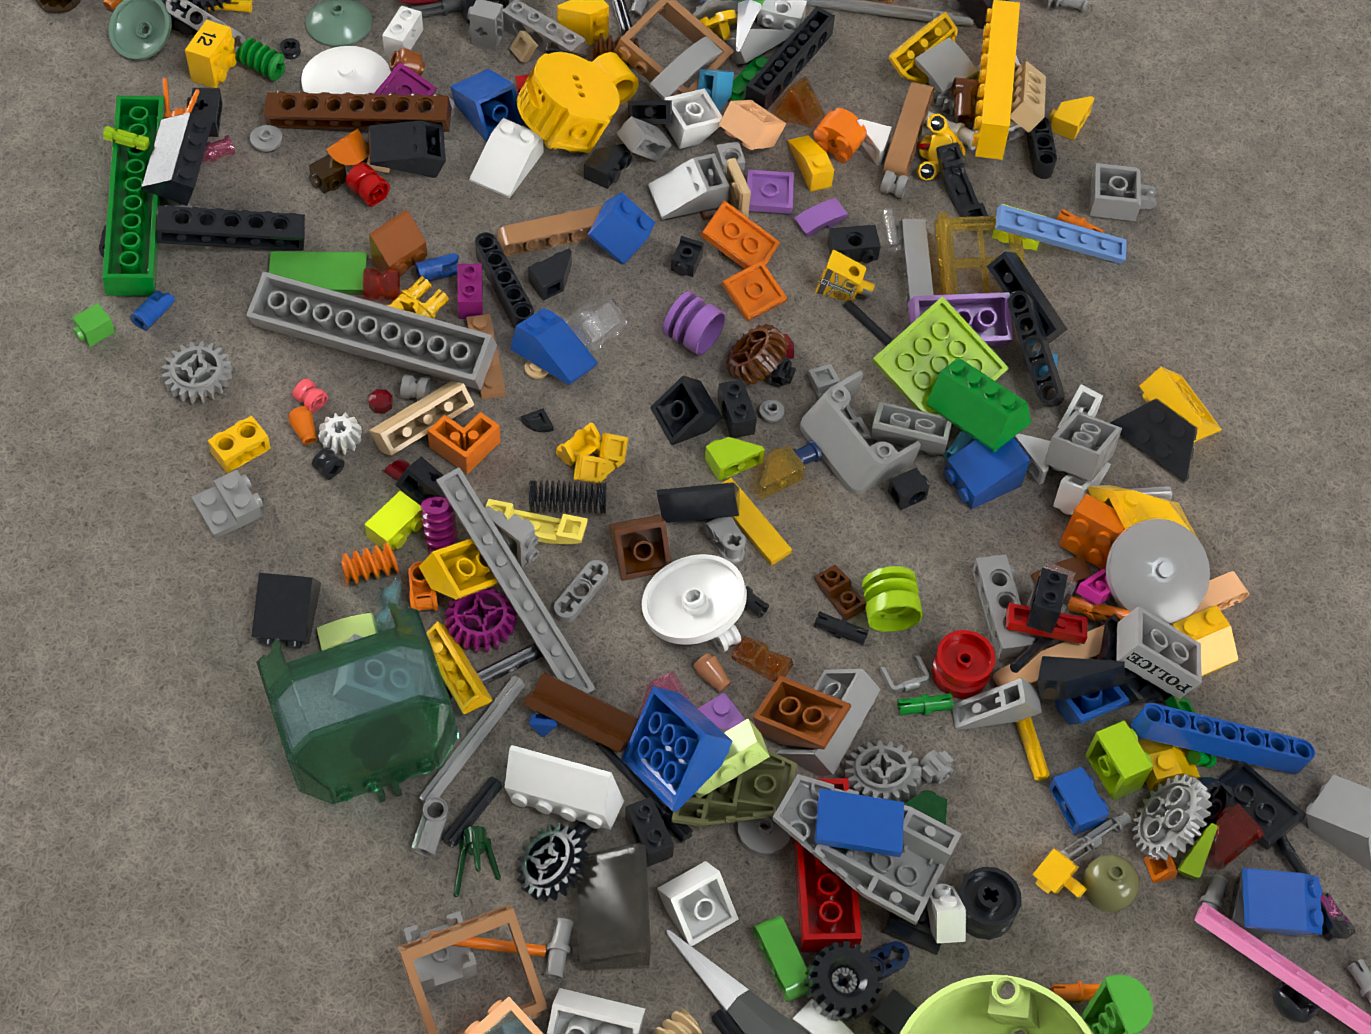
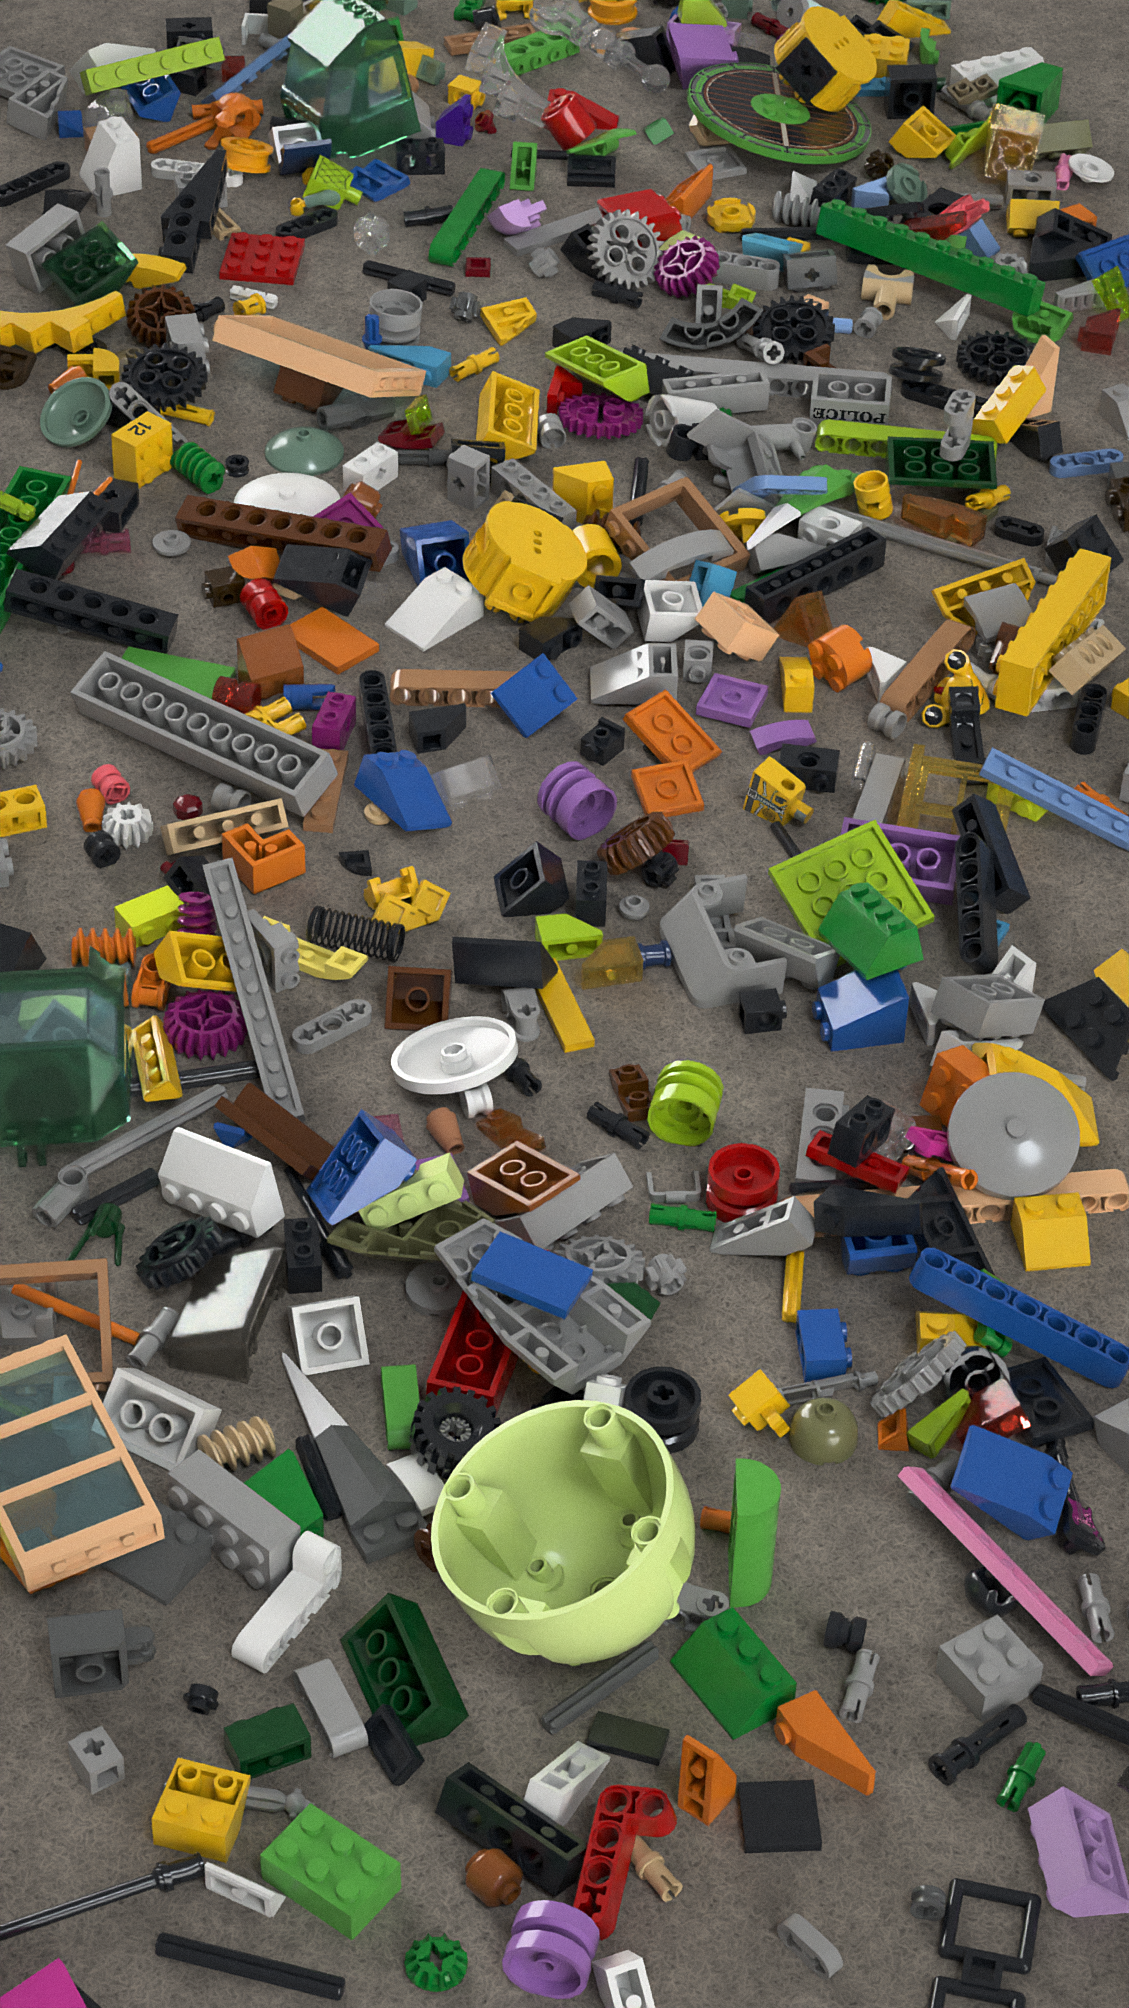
camera: 20 degrees right, 15 degrees down
(432, 205) = (332, 640): none -> orange tile
(738, 189) = (689, 684): tan plate -> none
(1119, 760) = (885, 1312): lime brick -> none
(1159, 652) = (976, 1212): light grey brick -> none

